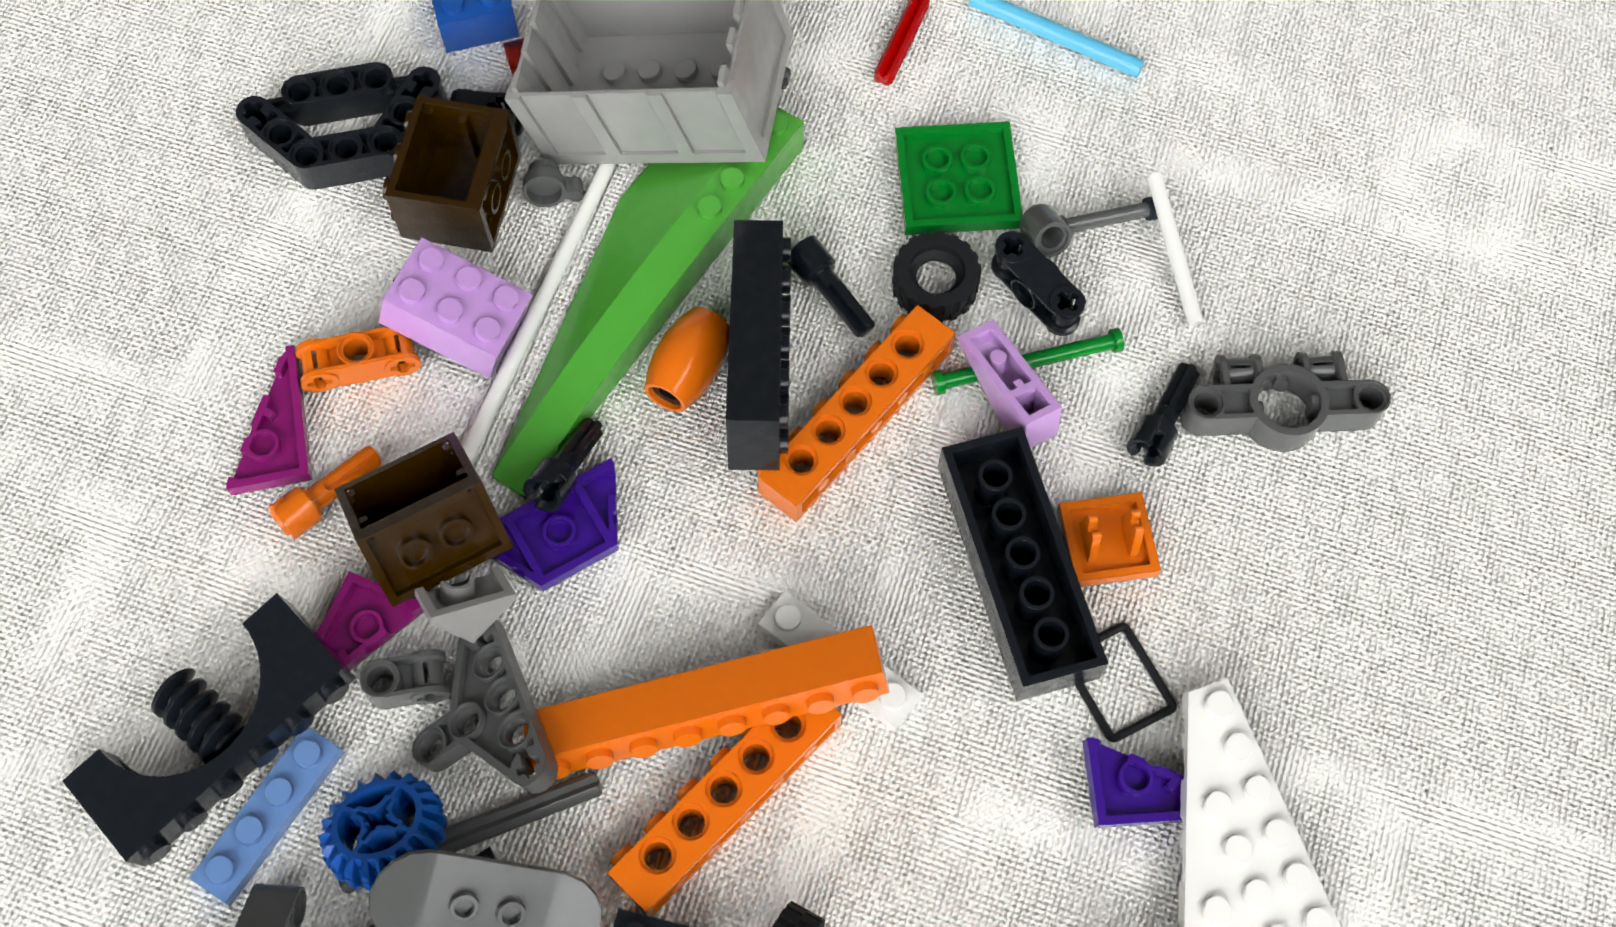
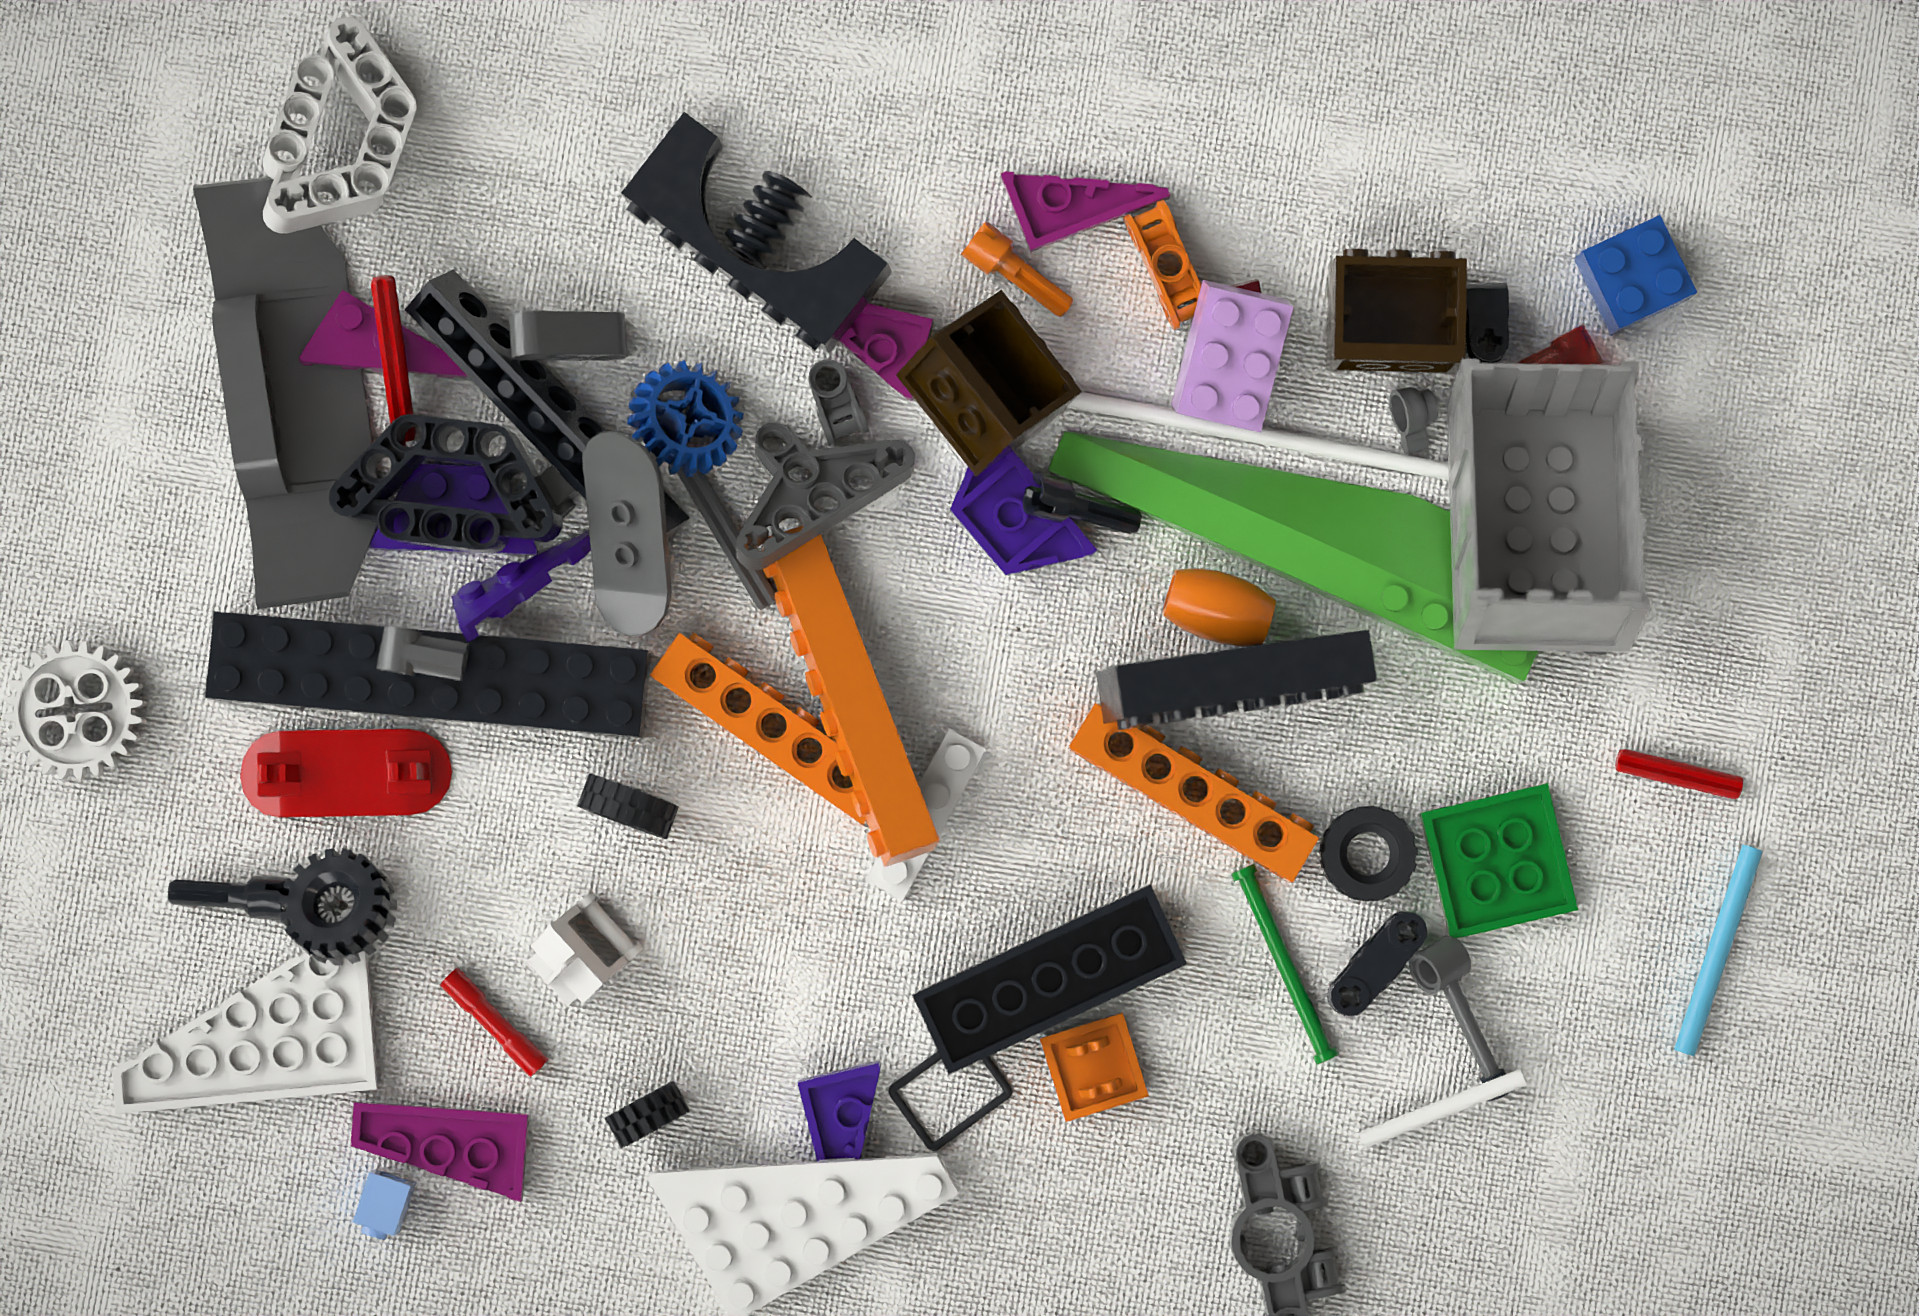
camera: 80 degrees right, 20 degrees up
(266, 816) = (689, 303): medium blue plate -> none
(331, 98) = (1470, 143): black piece -> none
(467, 606) = (913, 444): light grey slope -> none
(815, 267) = (1358, 720): black piece -> none
(1011, 384) = (1246, 946): lavender slope -> none
(1158, 430) = (1220, 1106): black piece -> none

